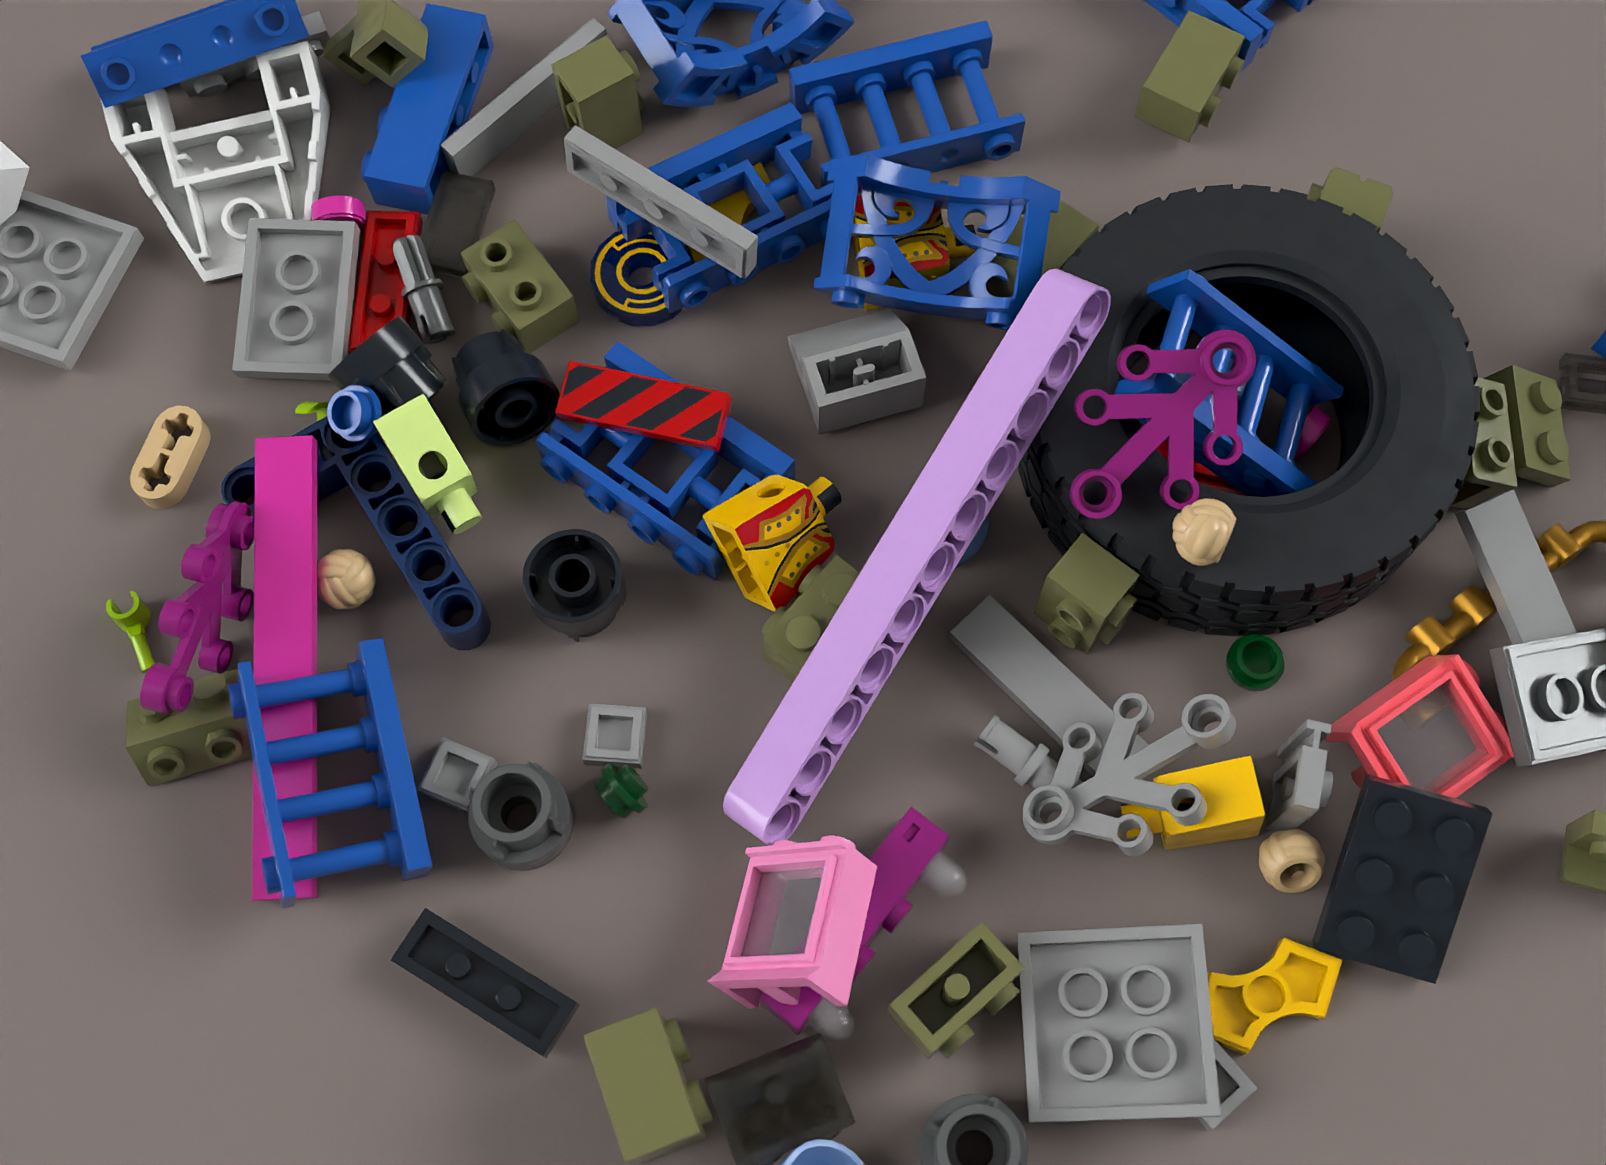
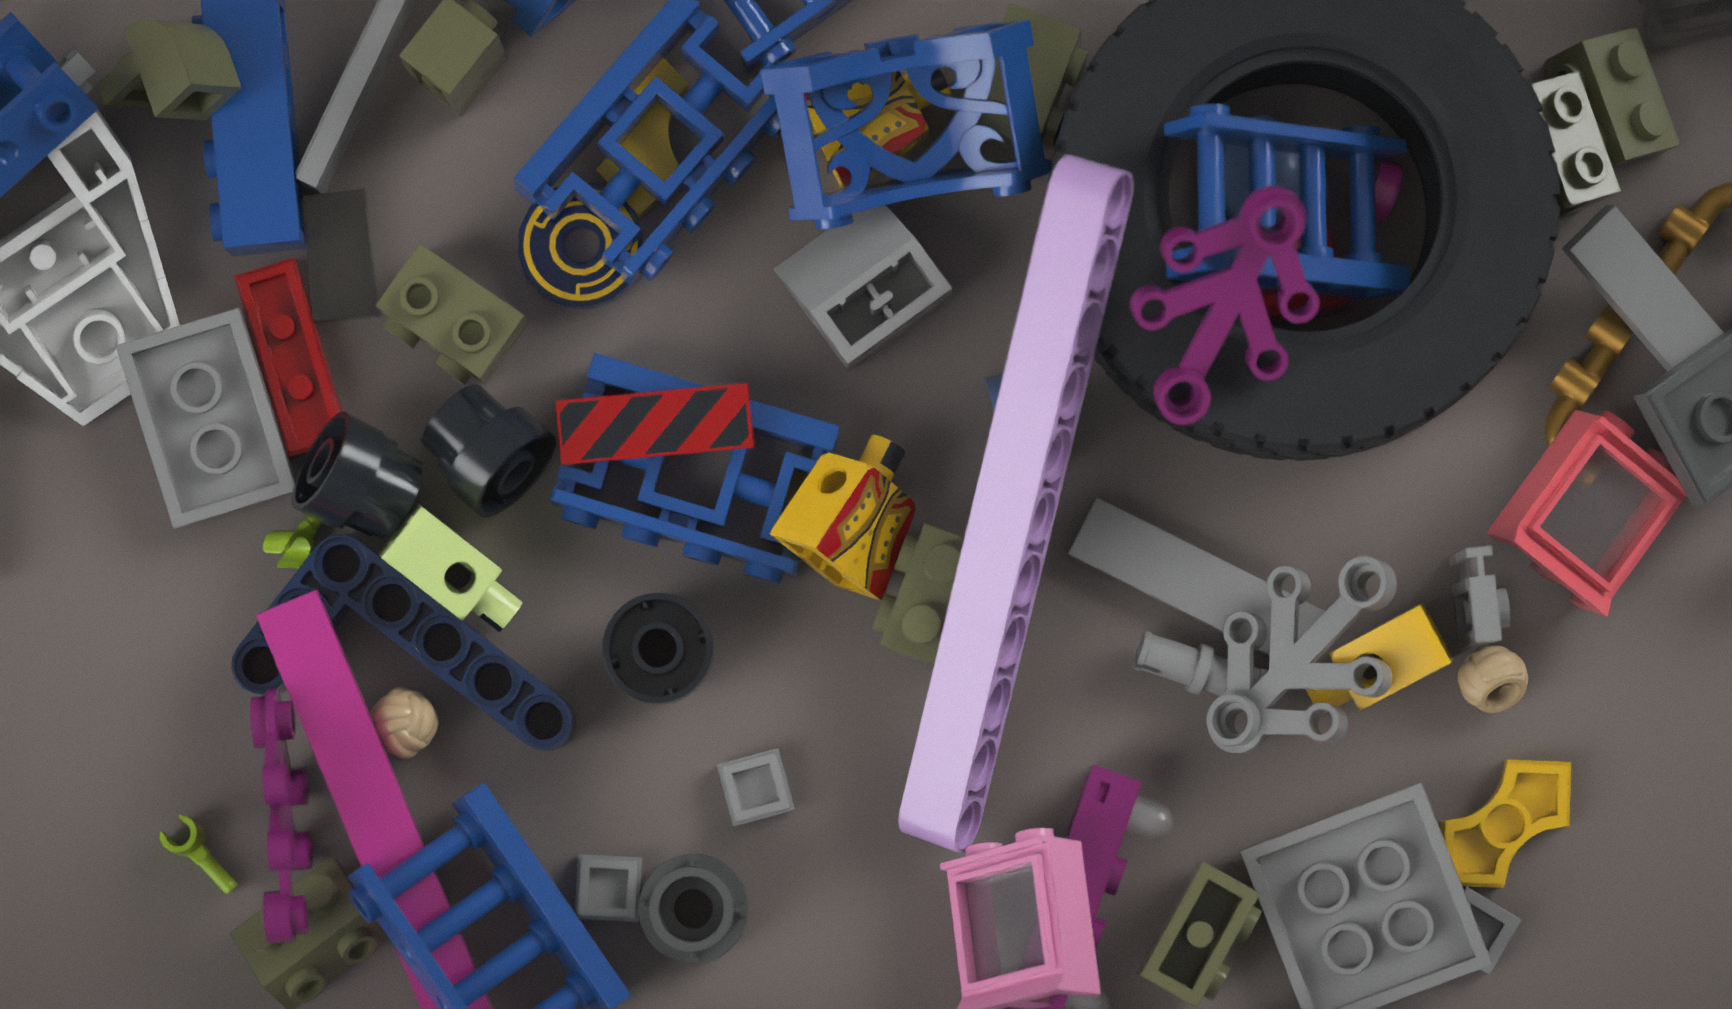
camera: 20 degrees left, 15 degrees up
(165, 455) = (129, 648): tan beam -> none
(339, 209) = (206, 297): dark pink tile -> none
(353, 413) = (349, 546): blue plate -> none
(422, 290) = (343, 356): dark grey axle -> none
(622, 789) = (788, 844): dark green plate -> none
(660, 202) = (588, 187): light grey tile -> none
(1086, 596) = (1202, 476): olive brick -> none
(1203, 531) = (1304, 399): tan piece -> none
(1255, 662) = (1398, 473): dark green plate -> none
(1401, 878) = (1605, 664): black plate -> none

